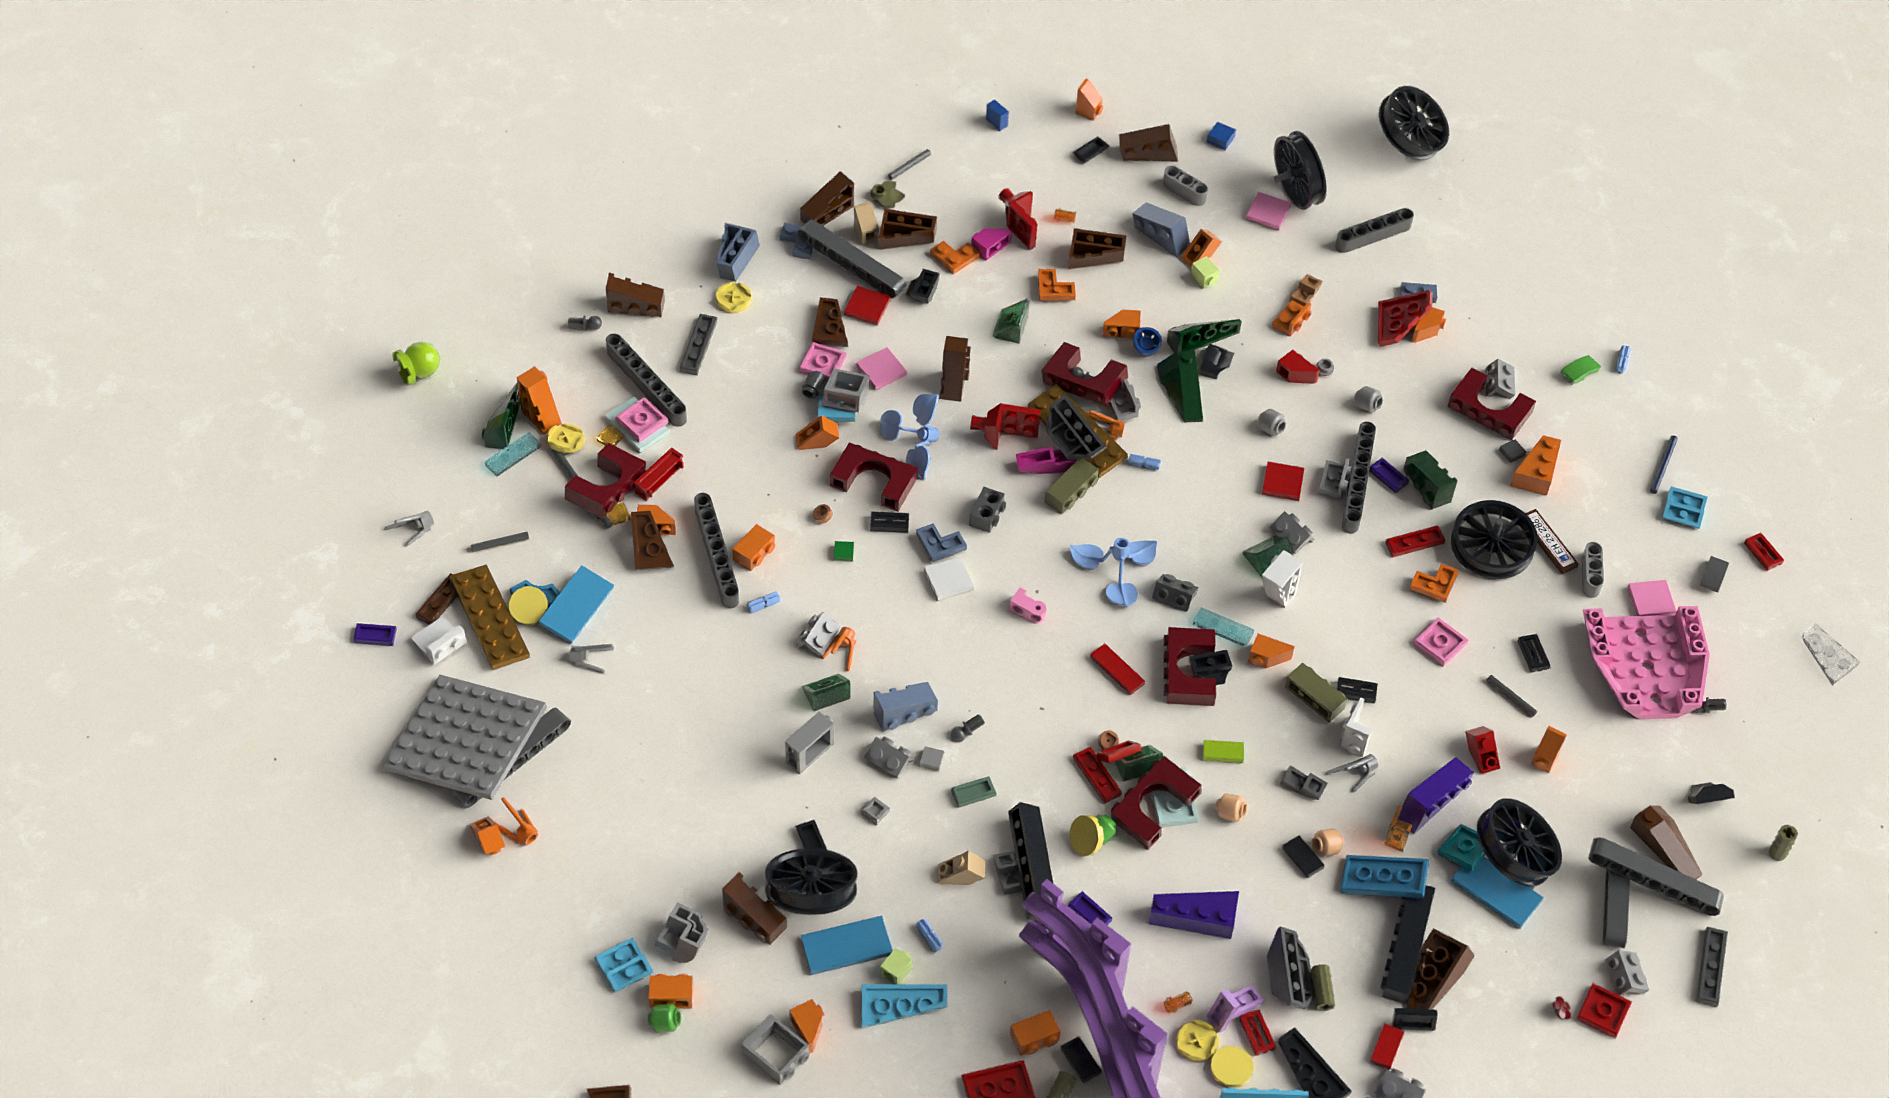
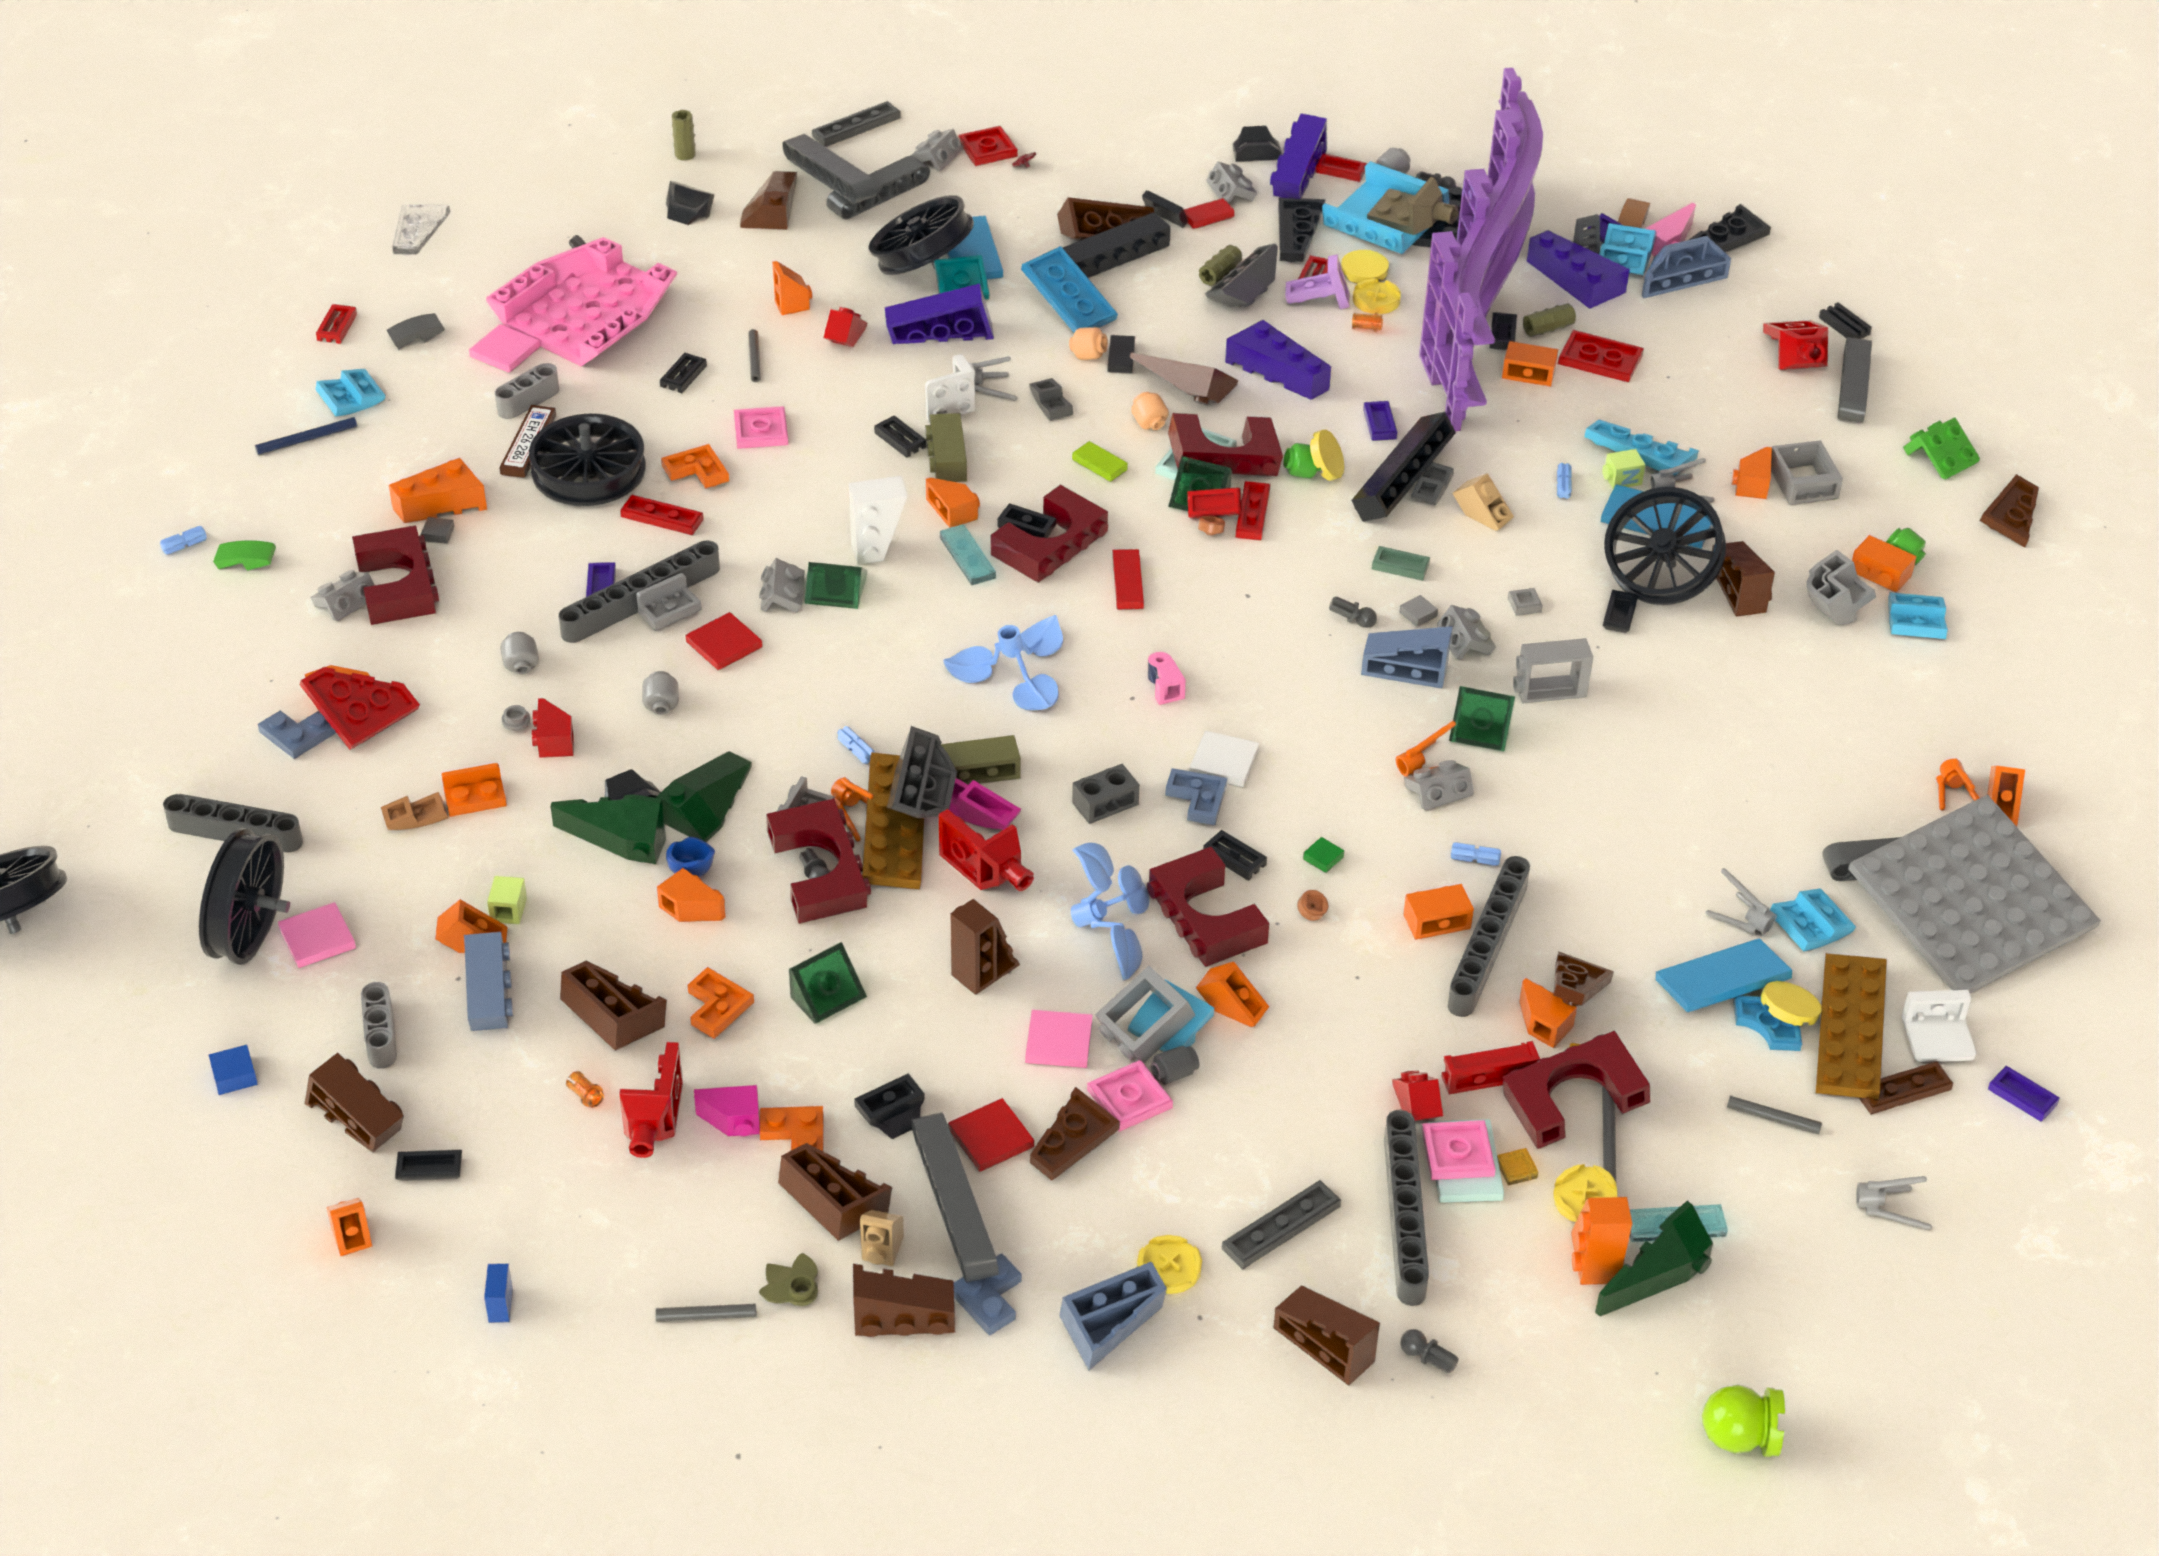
camera: 140 degrees left, 10 degrees down
(551, 675) = (1812, 919): none -> medium azure slope
(683, 436) = (1418, 1094): none -> red slope
(860, 974) = (1666, 478): none -> light grey plant
(1174, 592) = (980, 605): dark grey bracket -> none
(1236, 857) = (1196, 380): none -> wedge
(1397, 832) = (1015, 308): clear orange panel -> none
(1430, 479) = (573, 540): dark green wedge -> none

